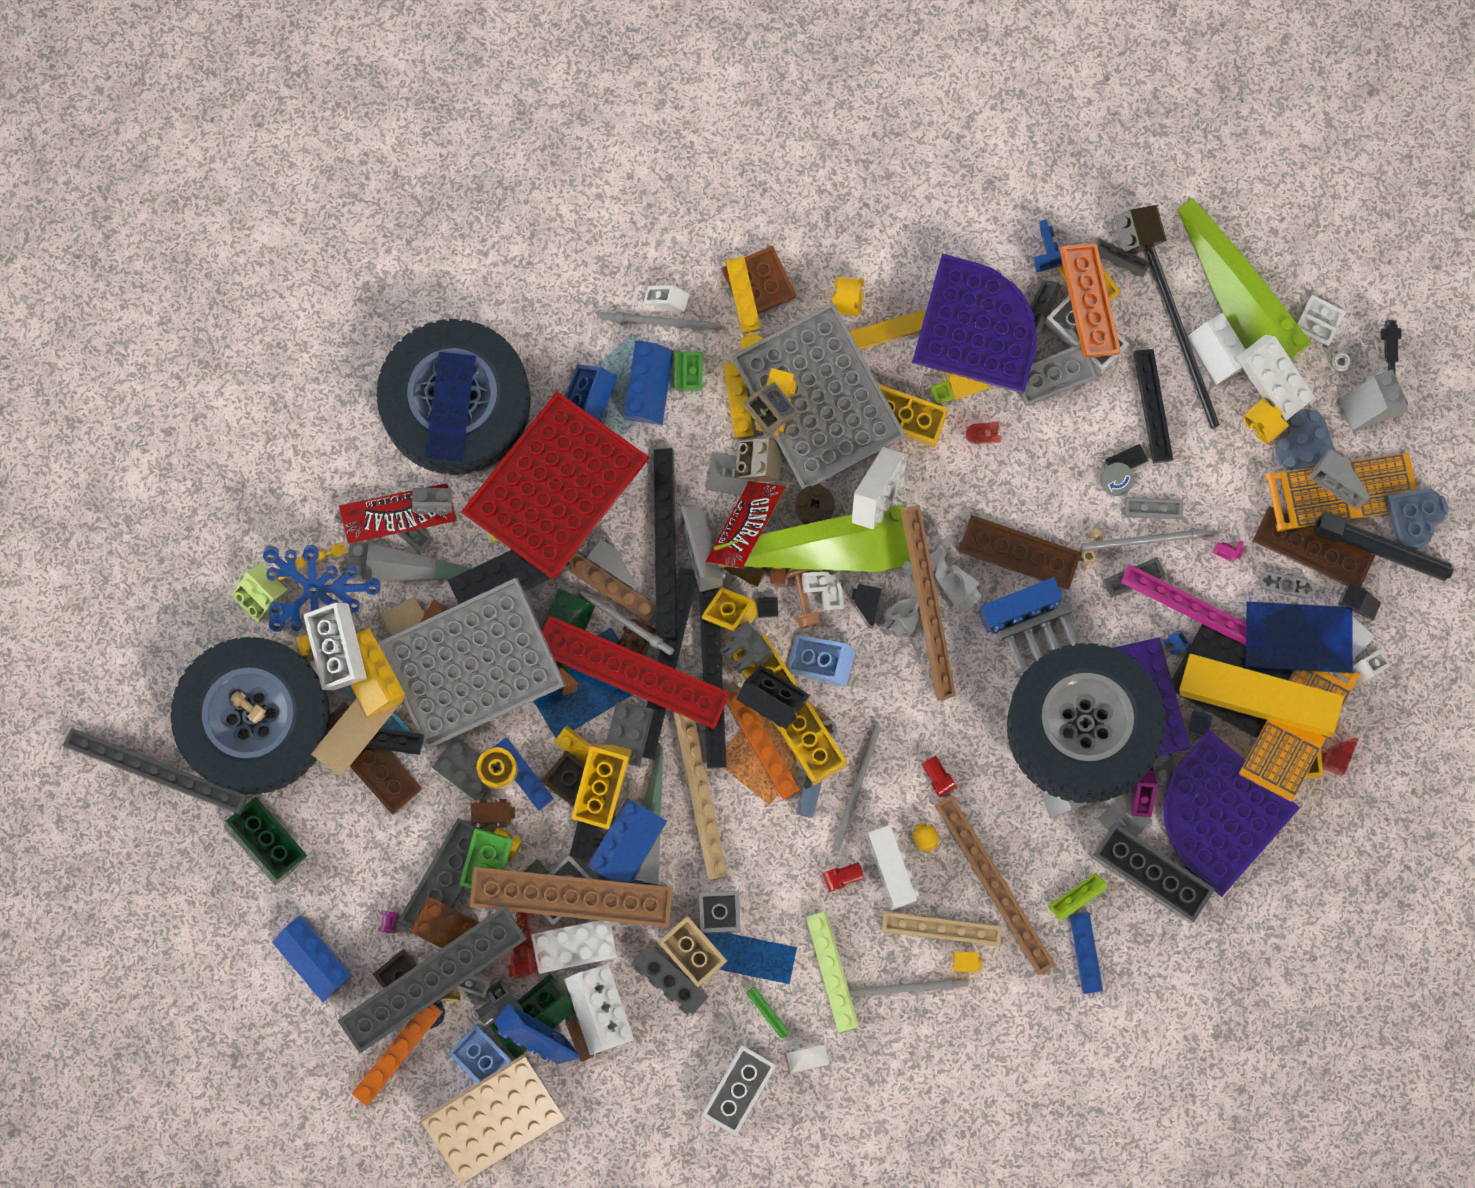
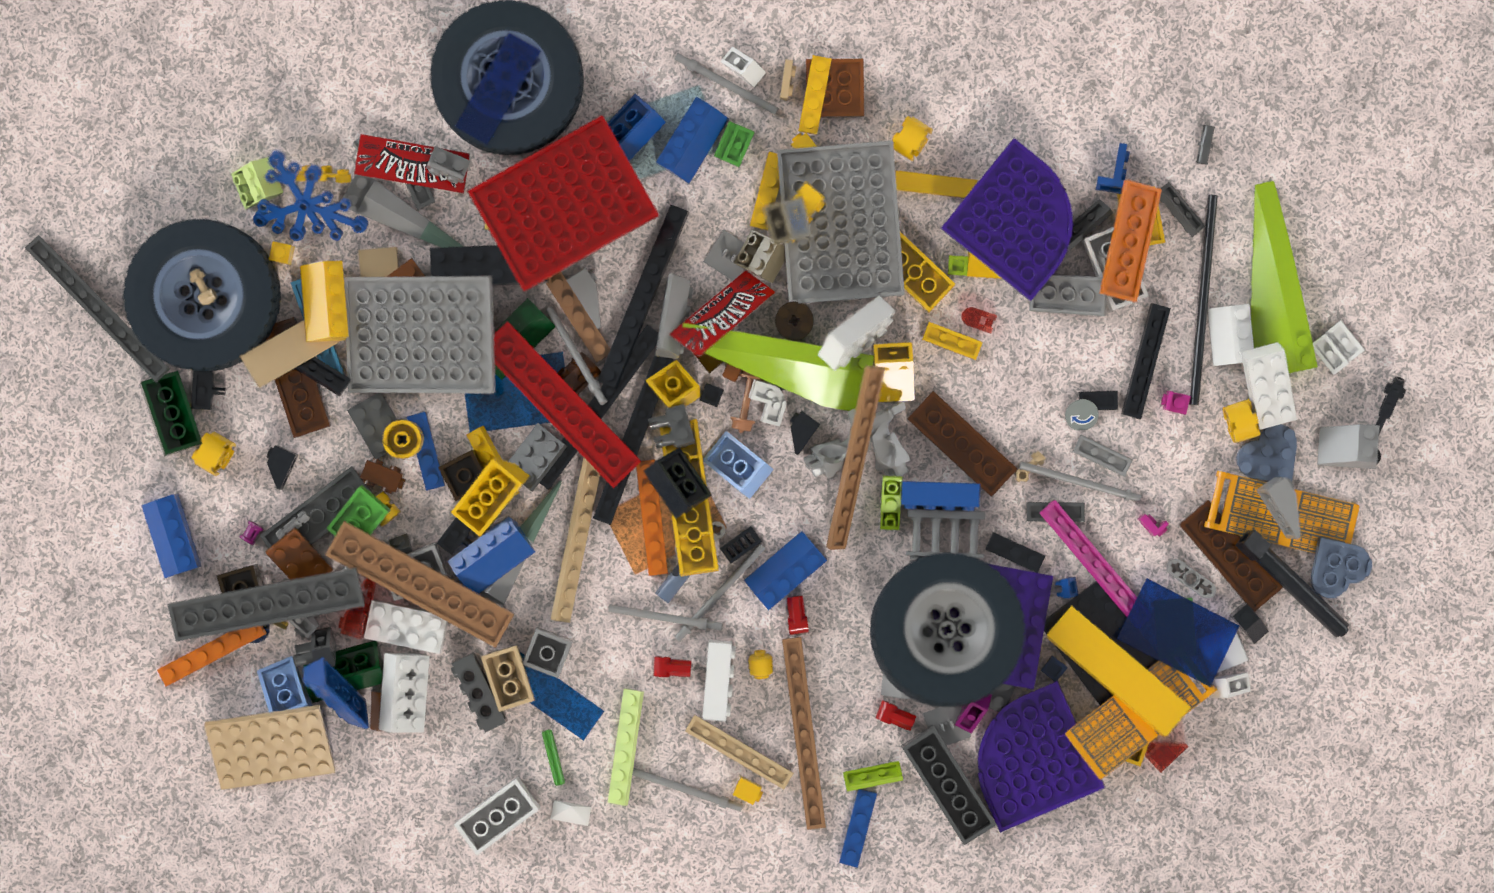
camera: 25 degrees right, 10 degrees up
(288, 806) = (204, 390): none -> black plate
(321, 860) = (213, 453): none -> yellow brick
(335, 646) = (302, 266): white brick -> none
(389, 843) = (280, 464): none -> black slope
(427, 892) = (297, 522): none -> light grey axle
(571, 685) = (499, 389): dark orange slope -> none
(710, 286) = (787, 88): none -> tan plate
(849, 748) = (731, 559): none -> black slope
(853, 822) = (701, 623): none -> light grey bar
(909, 739) = (785, 570): none -> blue slope
(934, 511) = (899, 371): none -> yellow slope
(968, 463) = (952, 341): none -> yellow plate
(978, 632) = (890, 502): none -> lime slope
(1071, 831) = (892, 714): none -> red piece
(1114, 631) = (1015, 552): none -> black plate
(1116, 192) = (1205, 144): none -> dark grey pin
(1140, 229) = (1210, 191): dark brown slope -> none
(1197, 431) = (1175, 402): none -> dark pink bracket
(1343, 356) = (1344, 394): white plate -> none

